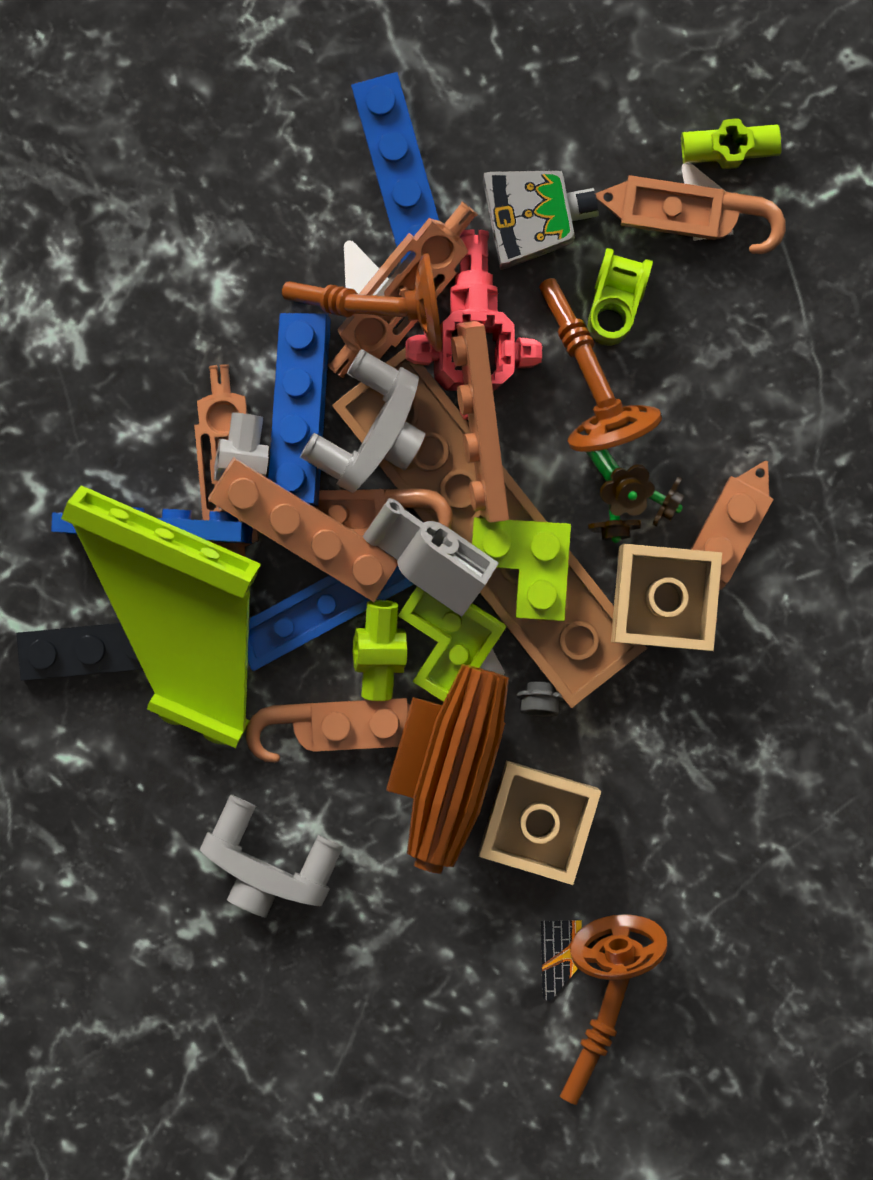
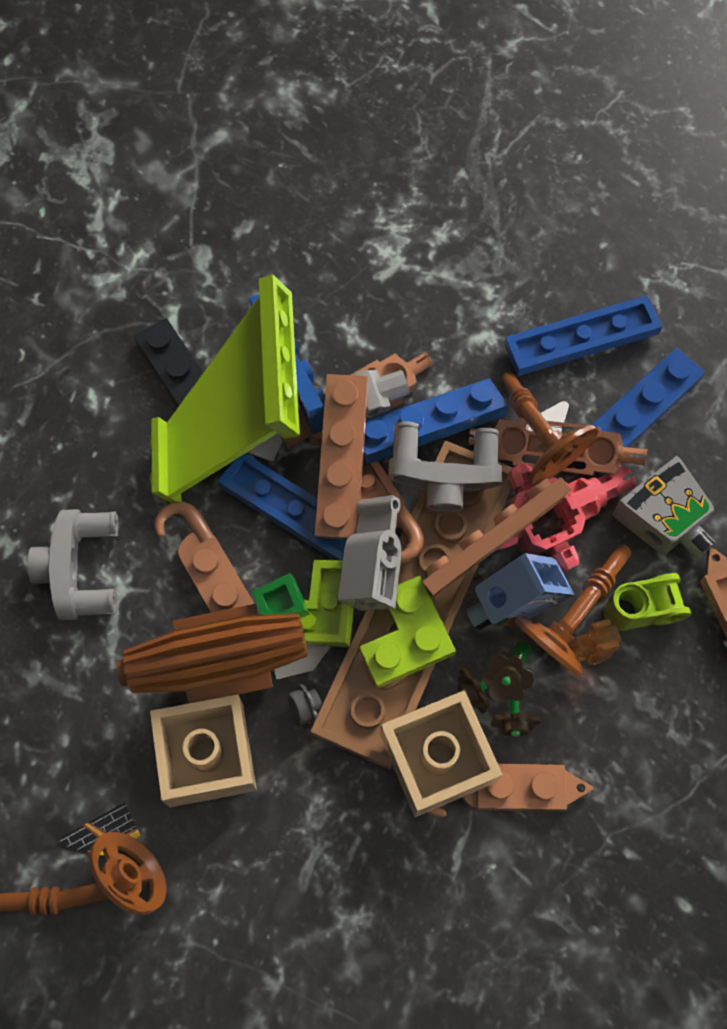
camera: 65 degrees right, 20 degrees down
(282, 179) = (582, 335): none -> blue plate
(379, 650) = (279, 559): lime axle -> none
(428, 672) = (281, 597): none -> green plate
(544, 424) = (519, 590): none -> medium blue torso
(636, 376) = (597, 643): none -> clear orange plate

